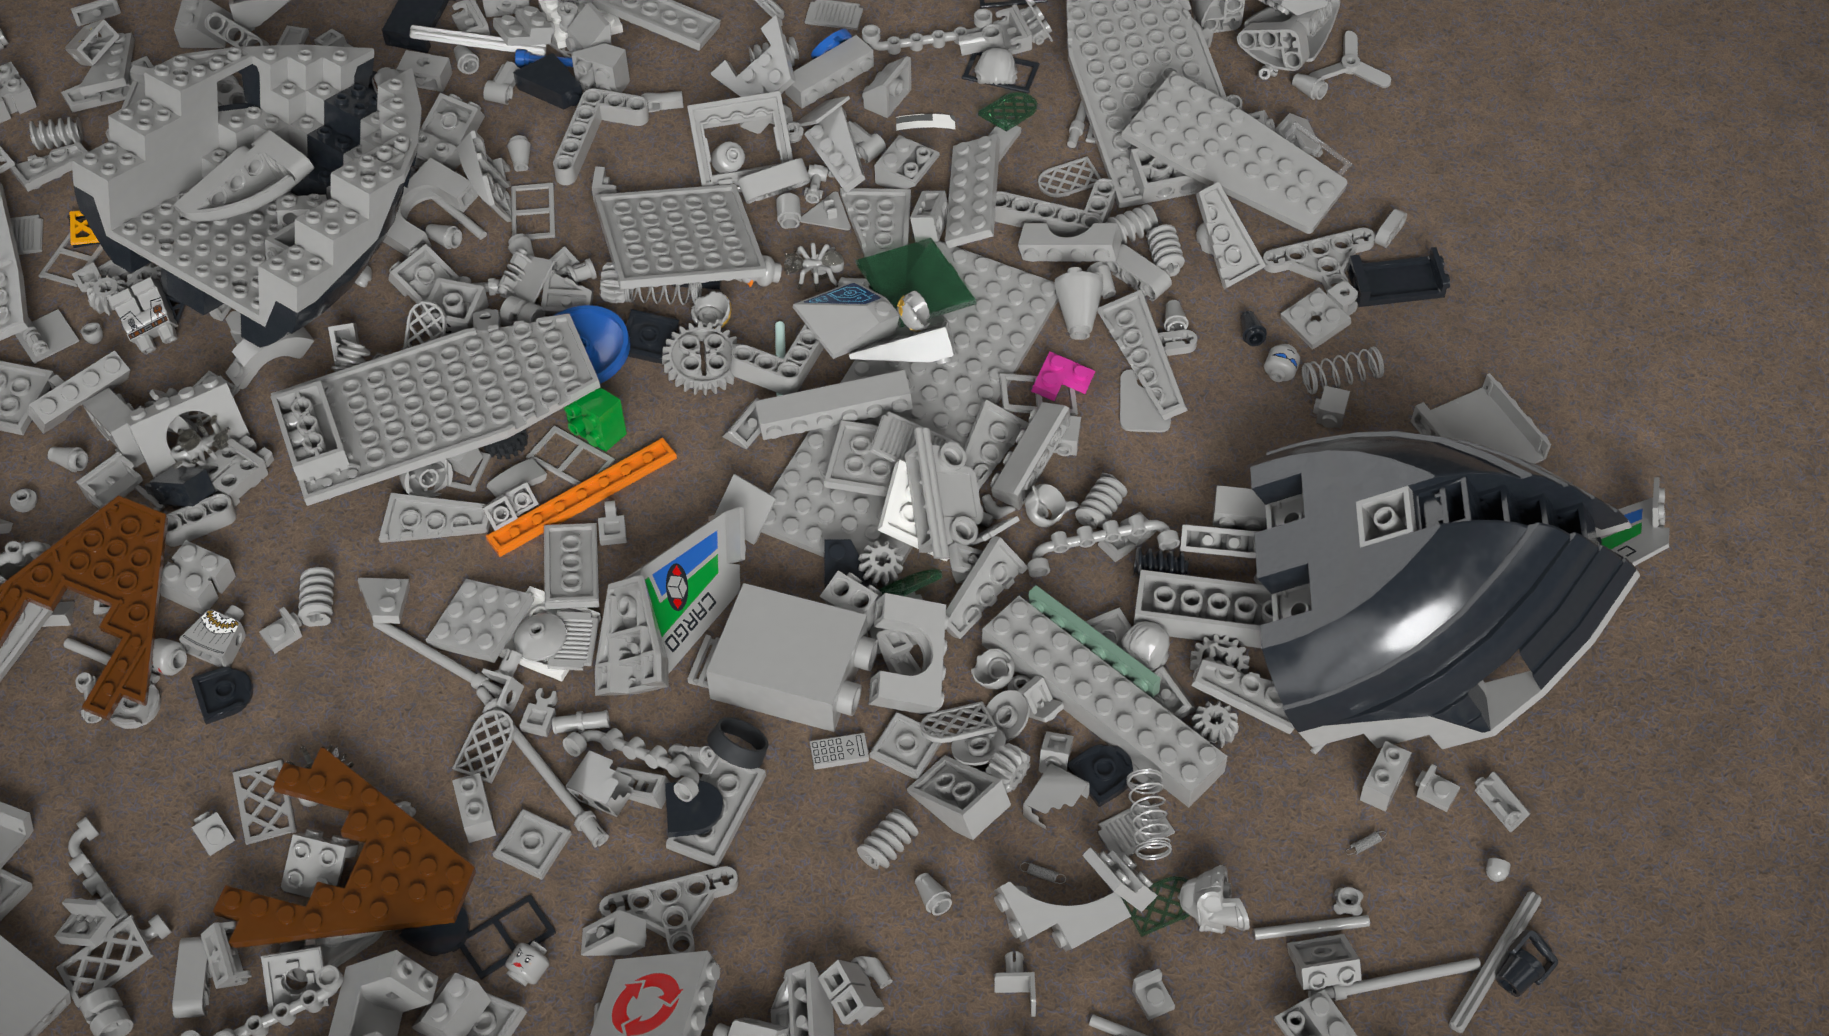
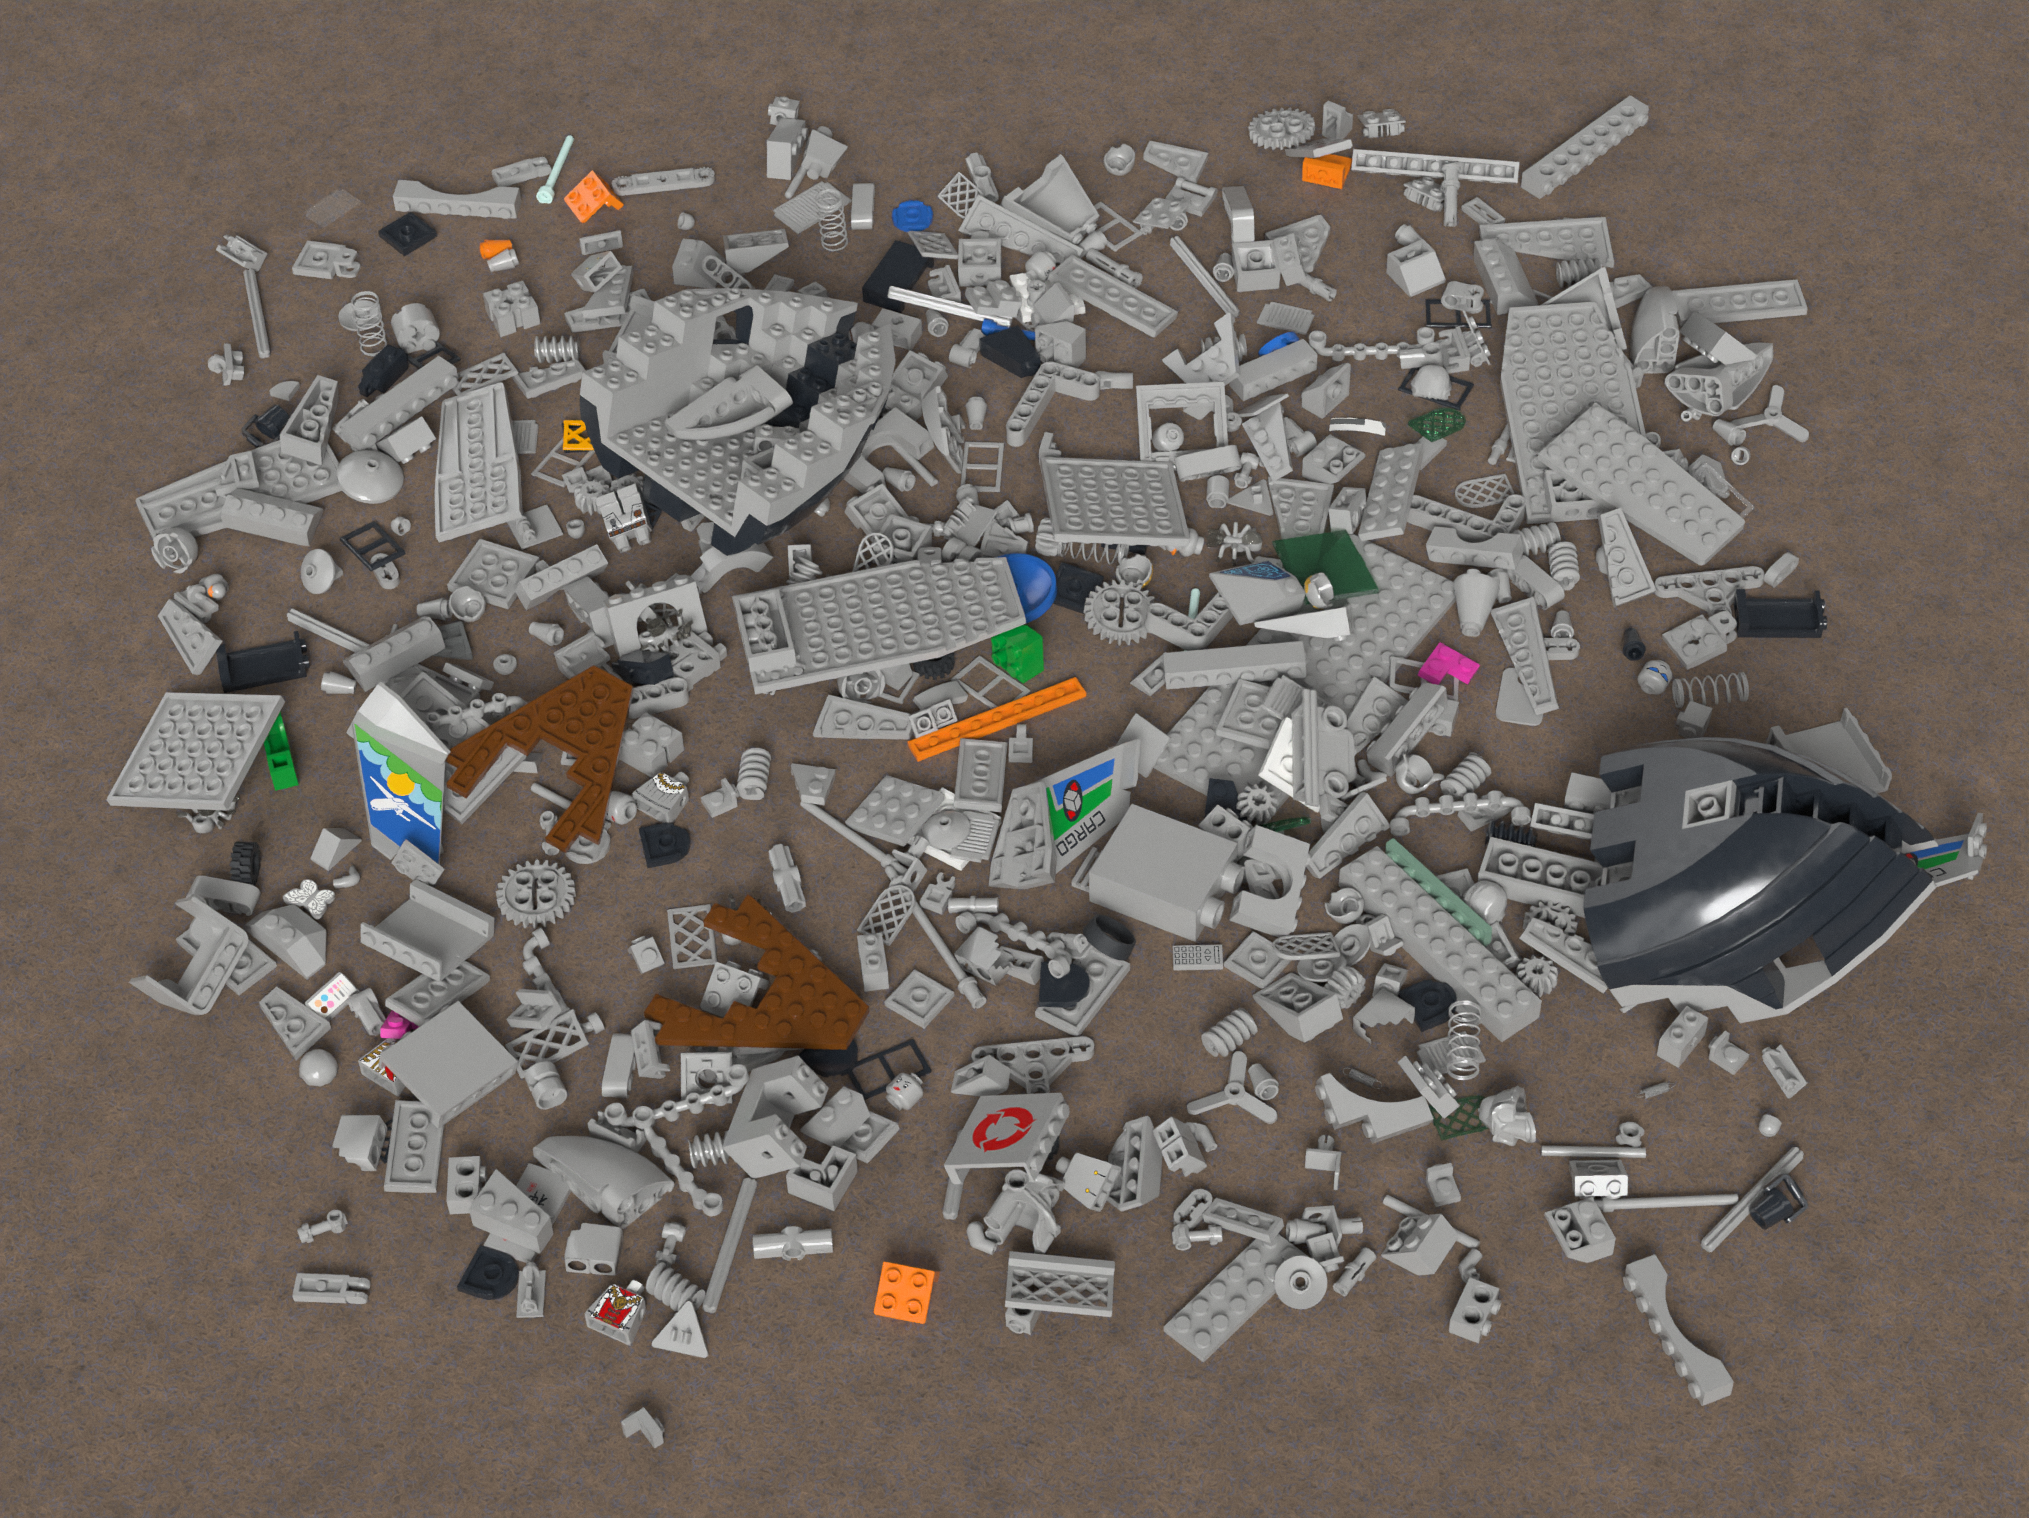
camera: 10 degrees right, 5 degrees down
(52, 778) = (554, 894): none -> light grey gear
(366, 717) = (787, 878): none -> light grey piece
(903, 901) = (1242, 1098): none -> light grey piece
(1321, 109) = (1737, 453): none -> light grey hinge

